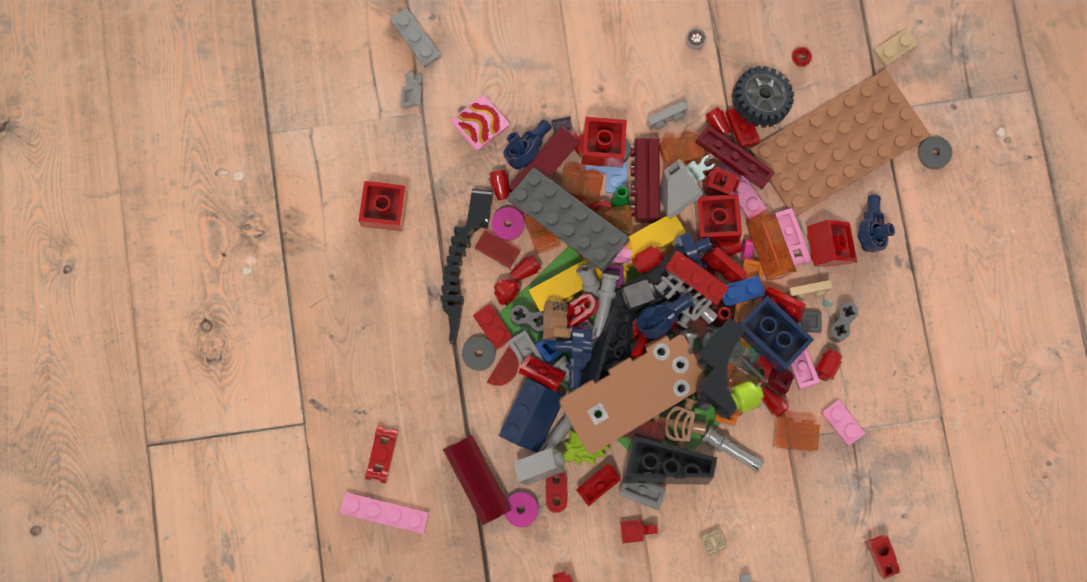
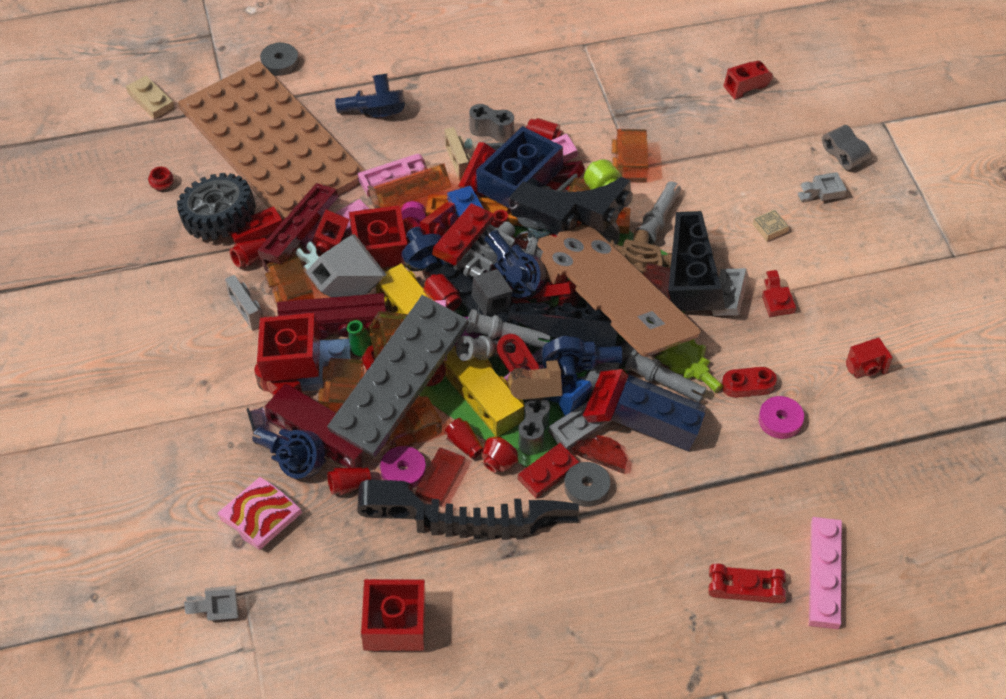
camera: 95 degrees left, 25 degrees down
(415, 38) = (127, 613): light grey plate -> none
(477, 480) = (754, 462): dark red panel -> none
(539, 466) = (725, 389): light grey brick -> none
(598, 484) = (723, 330): red plate -> none
(695, 38) = (135, 284): tile -> none
(831, 243) = (399, 138): red slope -> none
(843, 423) = (607, 121): bright pink plate -> none

